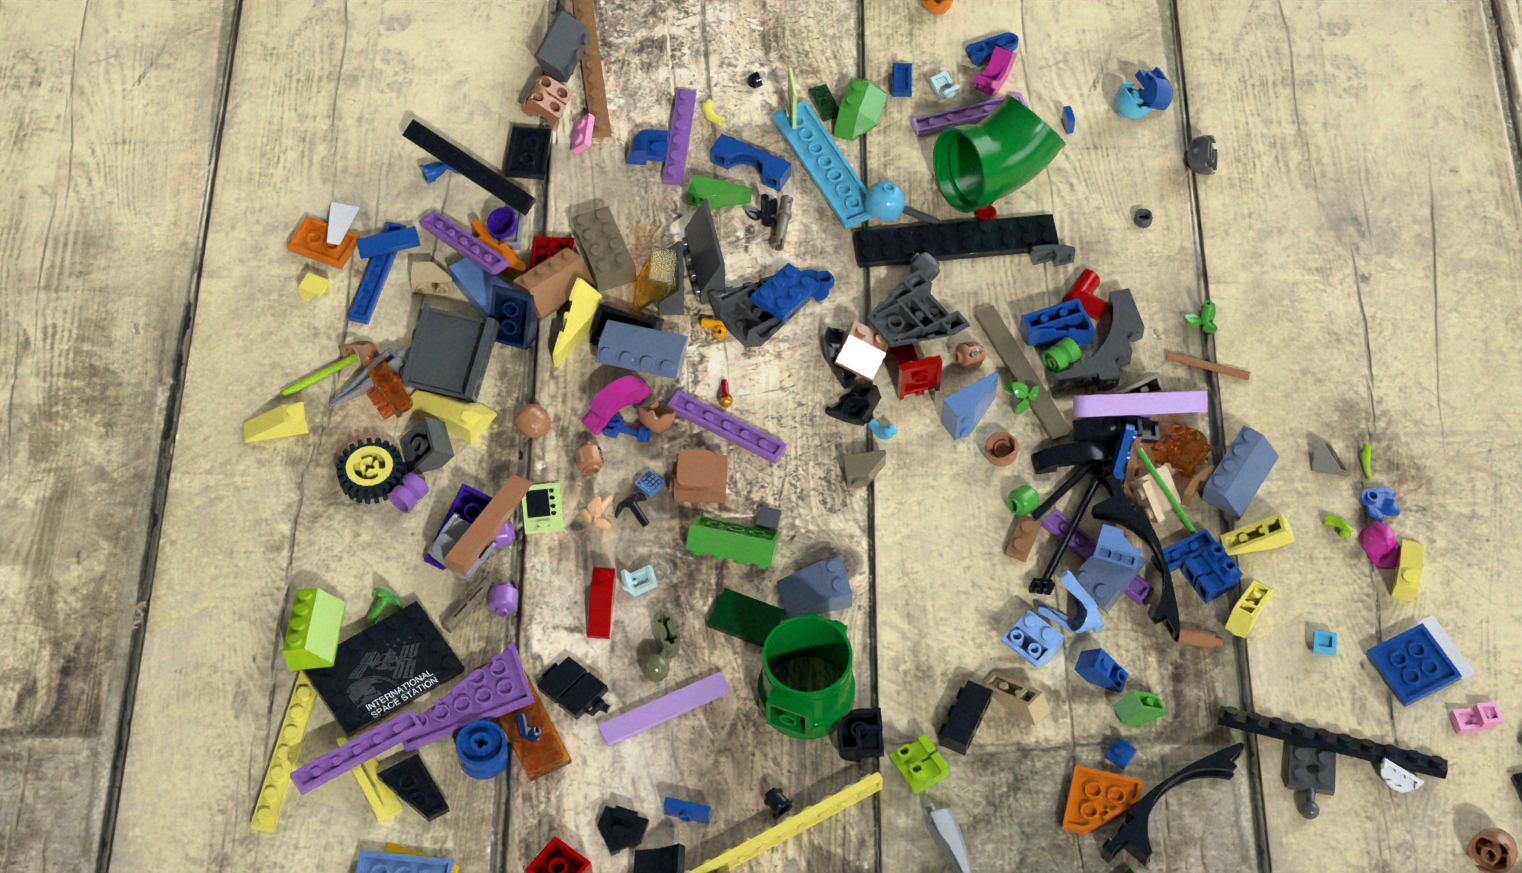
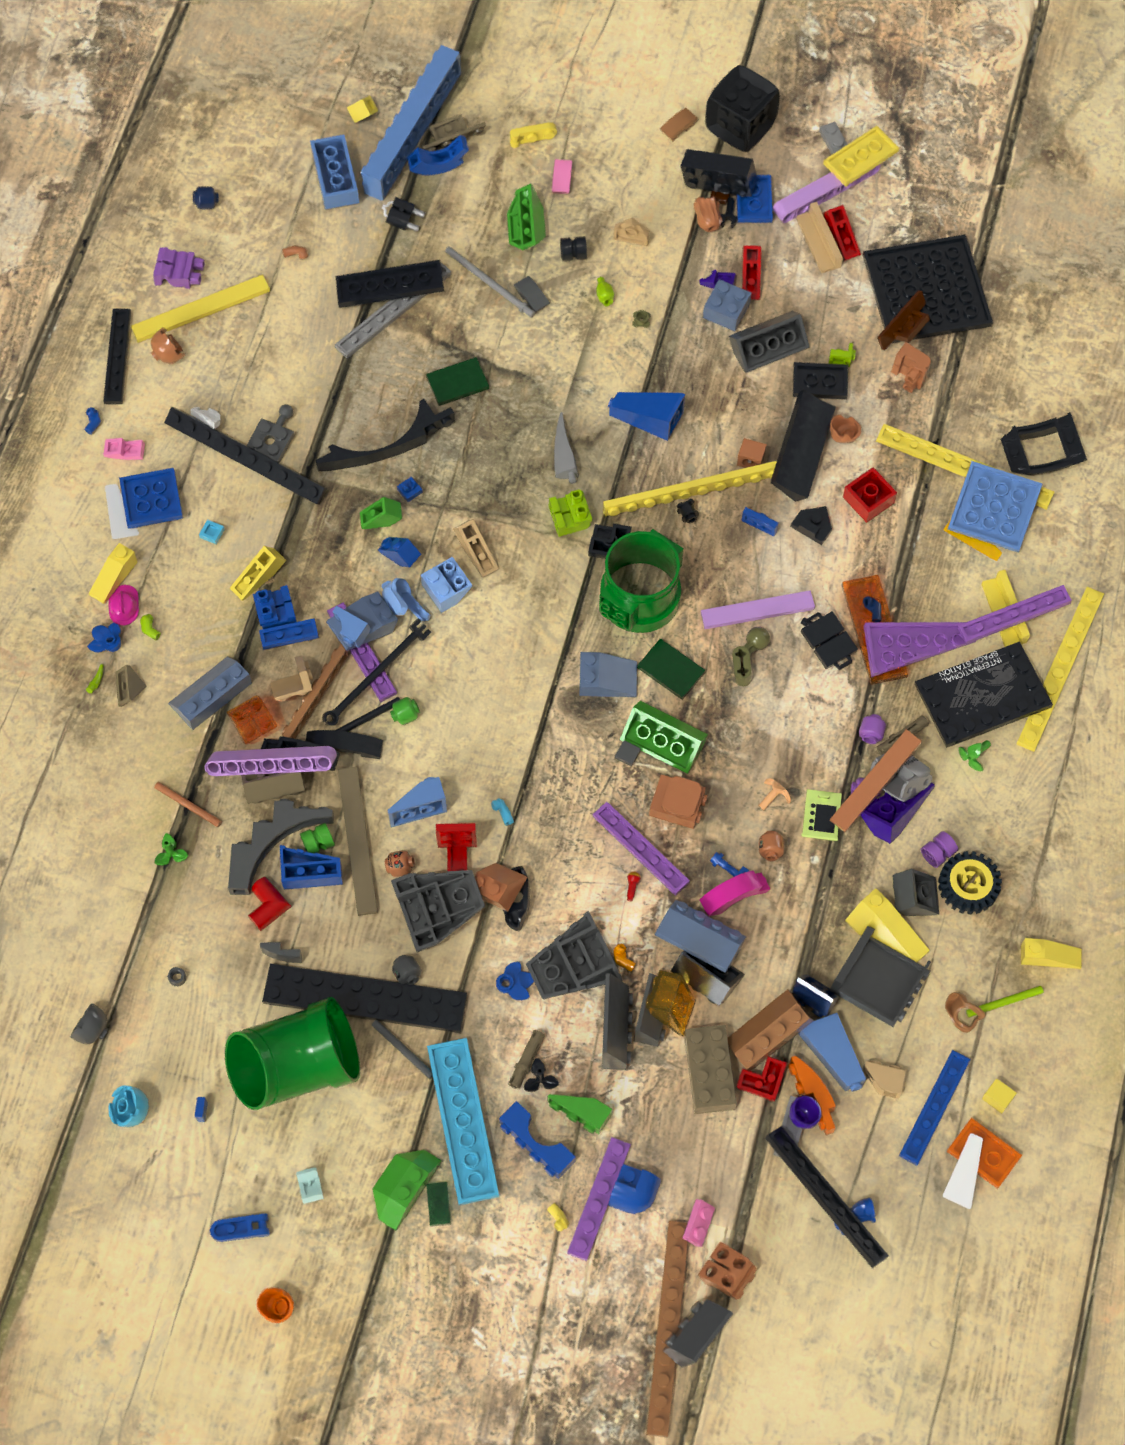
camera: 165 degrees left, 10 degrees up
(313, 630) = (1037, 729): lime slope -> none
(363, 382) = (955, 981): light grey piece -> none
(388, 242) = (920, 1131): blue tile -> none
(390, 390) = (942, 950): clear orange hips -> none
(415, 786) = (968, 592): black wing -> none
(464, 243) = (847, 1103): medium lavender plate -> none
(482, 749) = (912, 602): blue wheel -> none
(528, 153) = (759, 1214): black plate -> none
(532, 421) = (815, 898): nougat hair -> none
(578, 320) = (746, 996): light yellow wedge -> none
(601, 602) = (789, 709): red slope -> none
(630, 502) = (744, 789): black plant -> none
(638, 581) = (753, 719): light aqua bracket -> none
(649, 484) = (722, 812): medium blue tile -> none
(657, 418) = (701, 869): nougat hair -> none
(754, 80) = (502, 1250): black hinge -> none
(785, 292) = (548, 968): blue plate -> none
(791, 99) = (478, 1184): yellowish green container -> none
(856, 405) = (518, 843): black slope -> none
(862, 467) = (532, 775): dark tan slope -> none
(885, 201) = (420, 1048): medium azure cylinder -> none
(902, 80) = (349, 1209): blue plate -> none
(958, 116) = (296, 1149): lavender tile -> none
(965, 717) = (520, 540): black brick -> none
(996, 72) = (254, 1185): dark pink arch -> none
(1001, 449) = (407, 759): nougat hair -> none
(1021, 391) = (367, 806): bright green plant -> none
(1023, 539) = (417, 681): medium nougat plate -> none
(1098, 798) = (441, 457): orange plate -> none
(1121, 511) = (329, 660): black slope -> none
(1122, 453) = (306, 722): blue plate -> none
(1157, 88) = (100, 1114): blue brick -> none
(1166, 491) = (283, 678): bright green axle -> none
(1197, 484) = (246, 691): medium nougat slope -> none
(1199, 638) = (309, 560): nougat cylinder -> none
(1259, 536) = (219, 629): light yellow slope -> none

